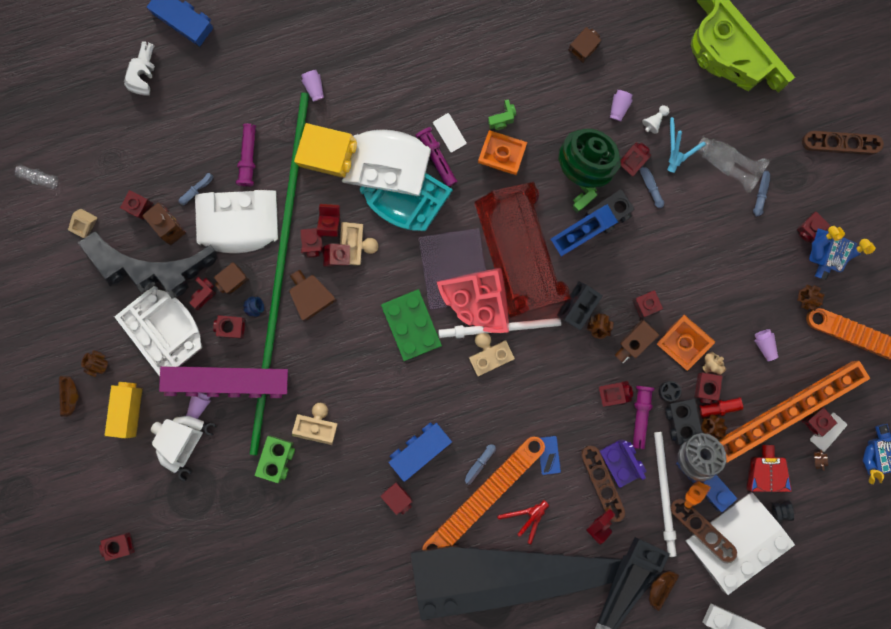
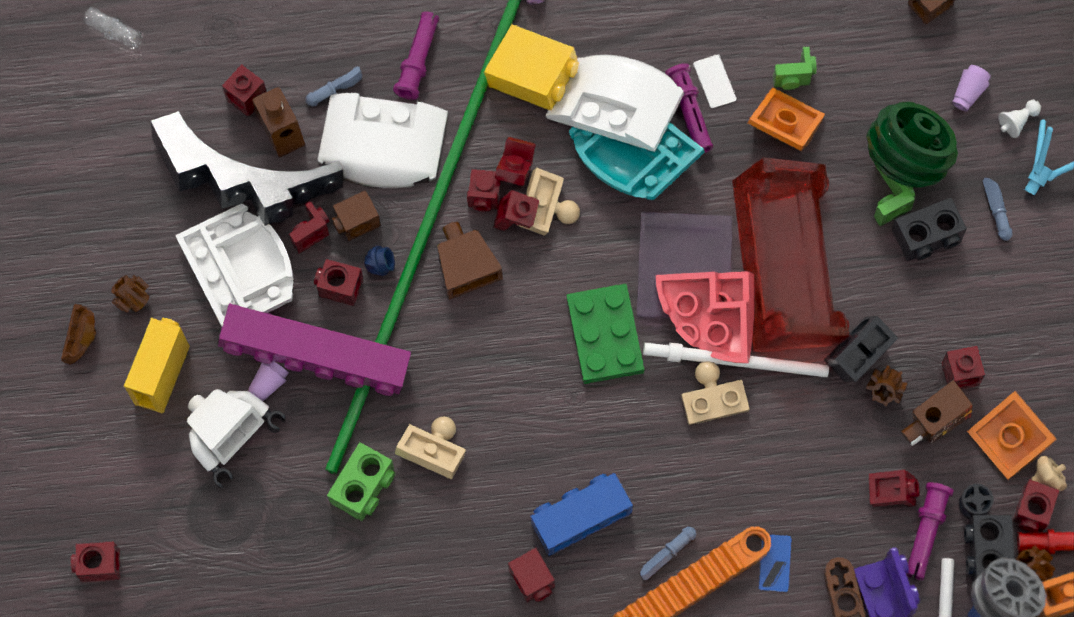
camera: 10 degrees right, 15 degrees down
(82, 223) = (160, 102): tan slope -> none
(584, 230) = (886, 240): blue brick -> none
(635, 158) = (979, 163): dark red bracket -> none

